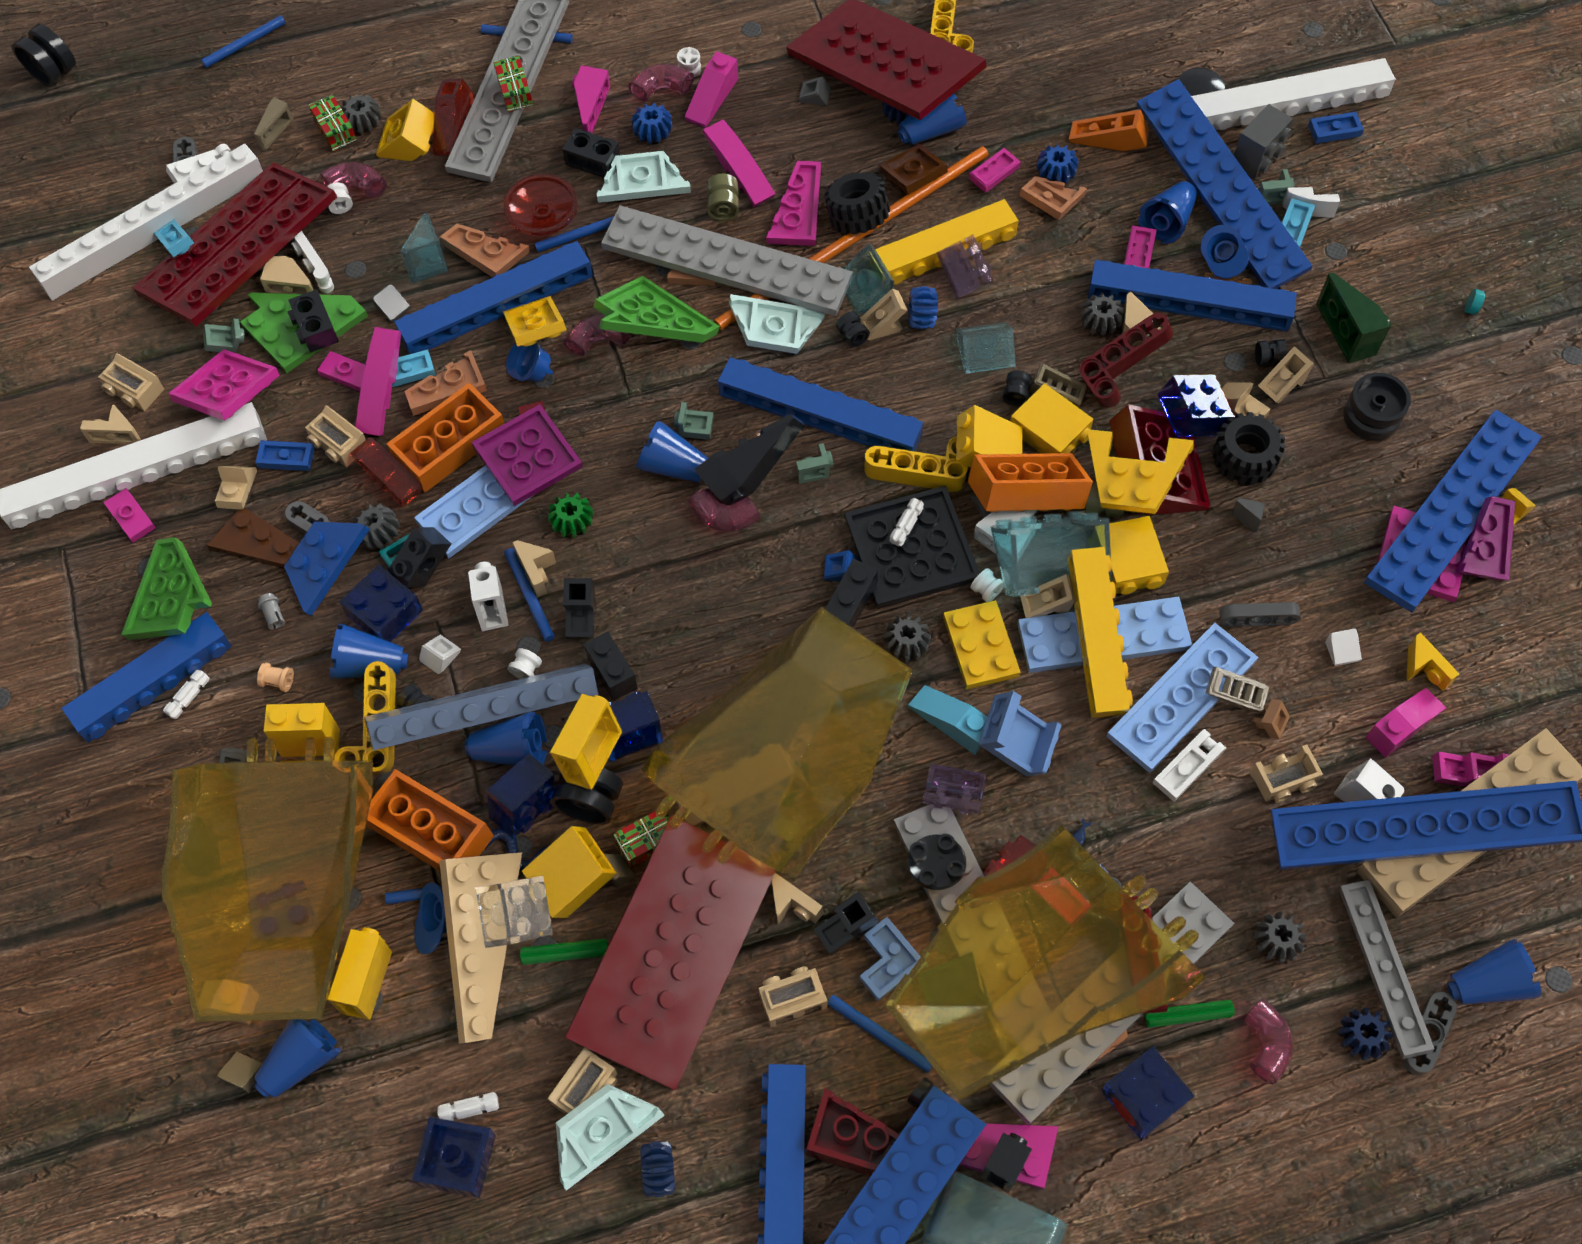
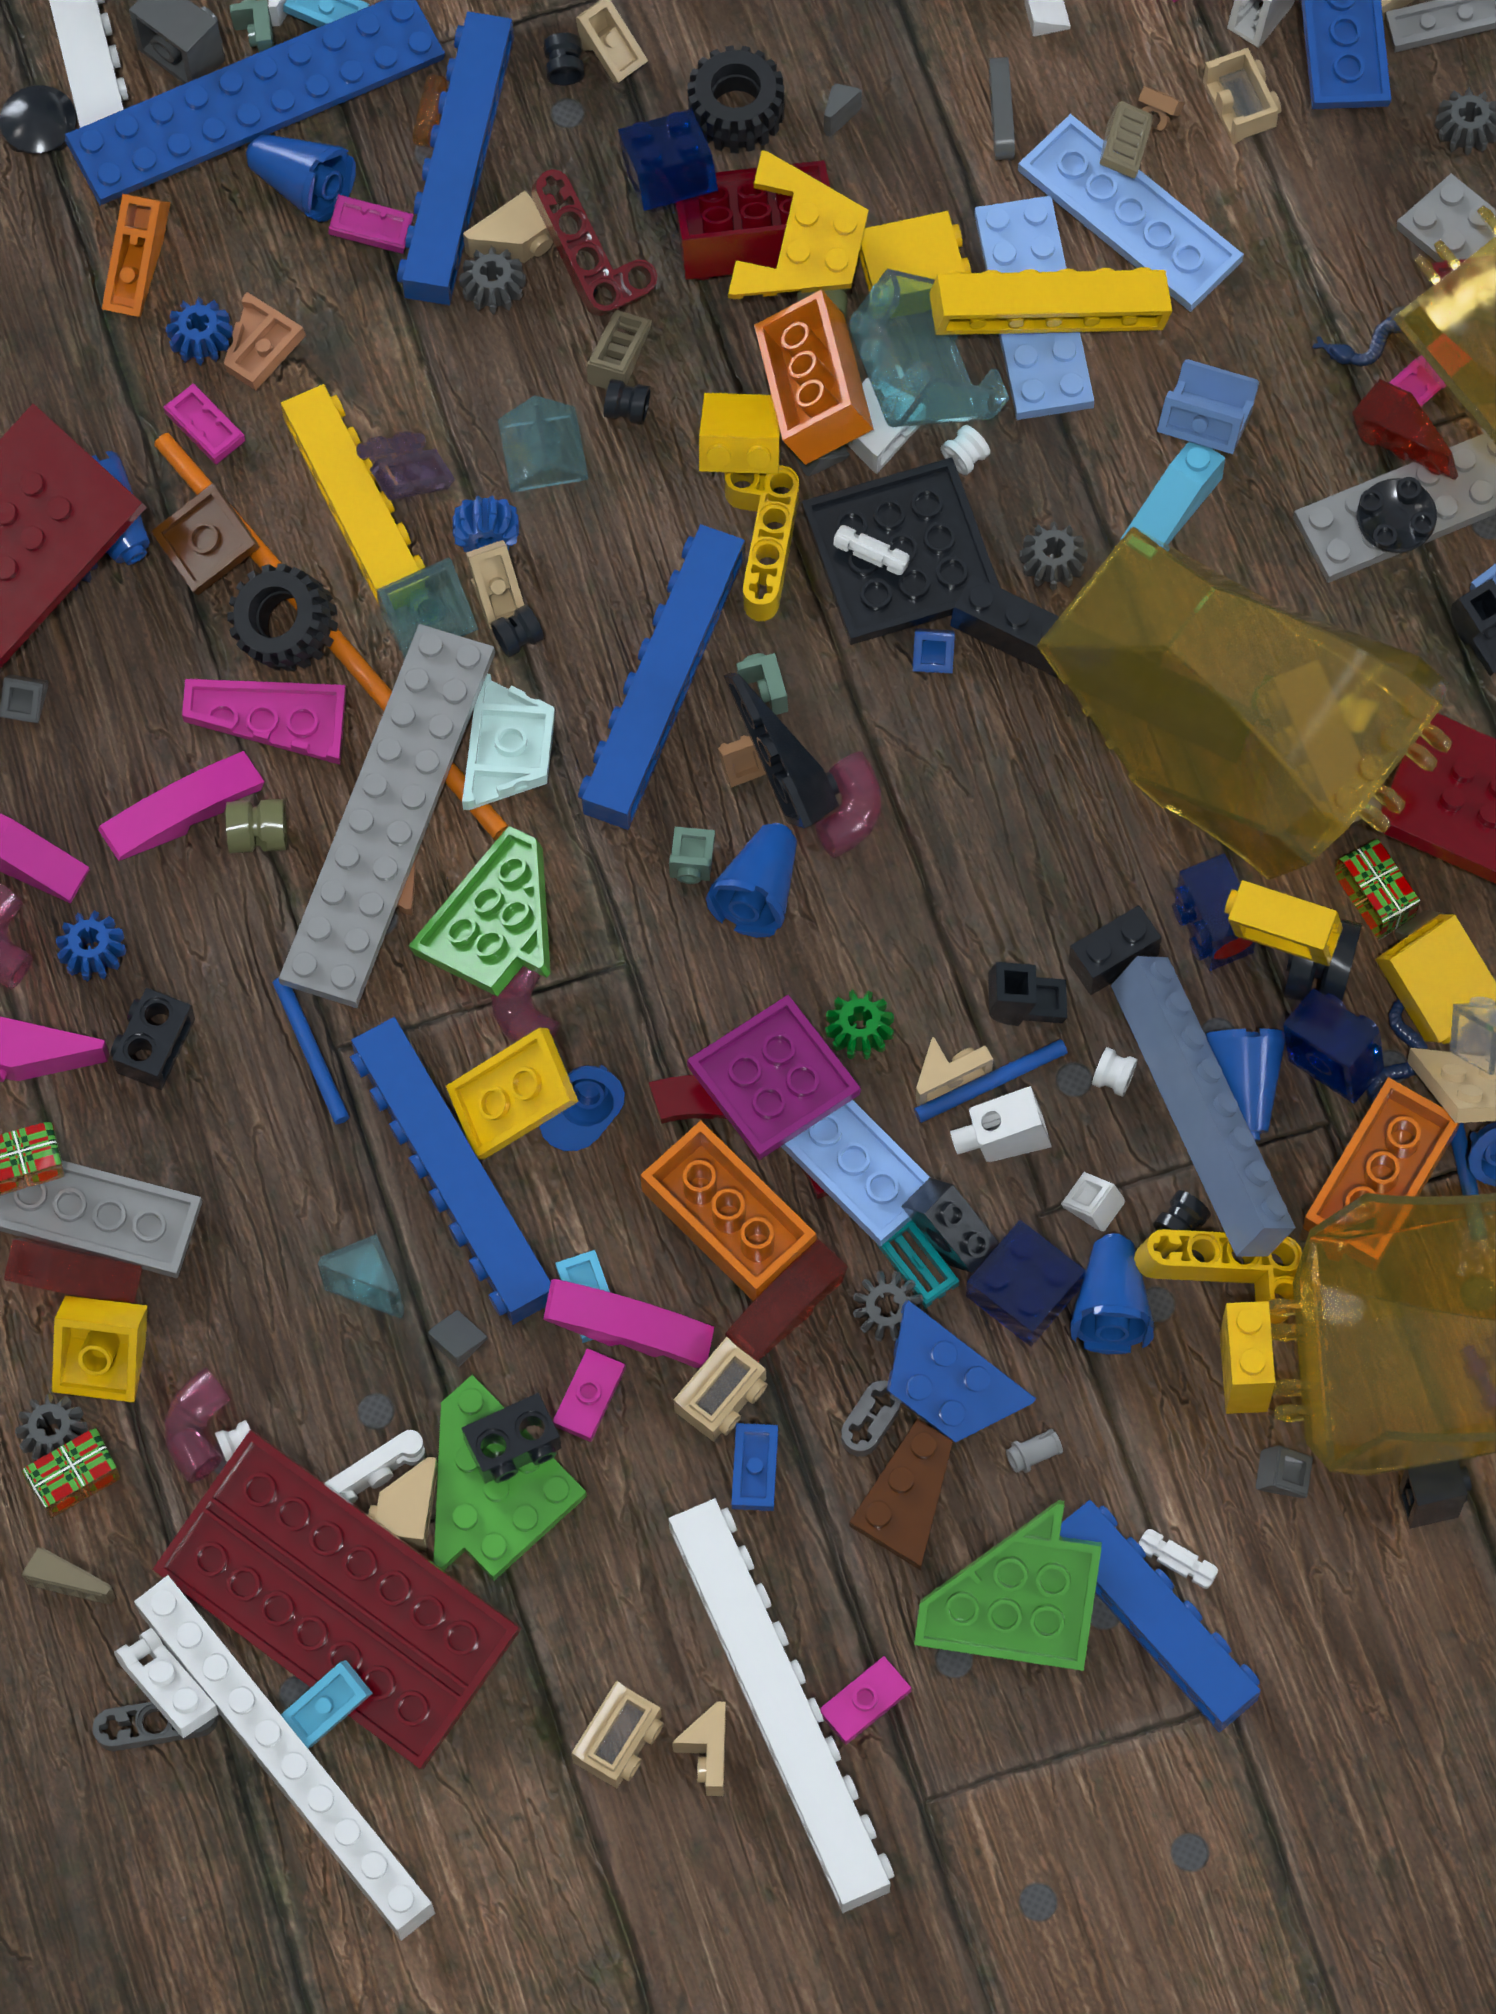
camera: 90 degrees left, 5 degrees up
(223, 337) = (527, 1593): sand green bracket -> none
(224, 384) = (633, 1568): dark pink plate -> none
(234, 486) = (812, 1535): tan slope -> none
(275, 677) = (1146, 1427): light nougat bush -> none
(436, 389) = (619, 1229): nougat wing -> none
(484, 252) = (353, 1195): nougat wing -> none
(537, 196) = (264, 1081): clear red dish -> none
(642, 177) = (203, 957): light aqua wing -> none
(788, 896) = (1460, 691): tan slope -> none
(957, 783) = (1273, 495): clear purple plate -> none
(981, 644) = (1055, 464): yellow plate -> none
(1052, 422) = (691, 356): yellow brick -> none
(1052, 597) = (989, 350): tan slope -> none
(1188, 765) = (1231, 211): white plate -> none
(1224, 251) = (388, 102): blue piece -> none
(1241, 401) = (648, 102): tan slope -> none

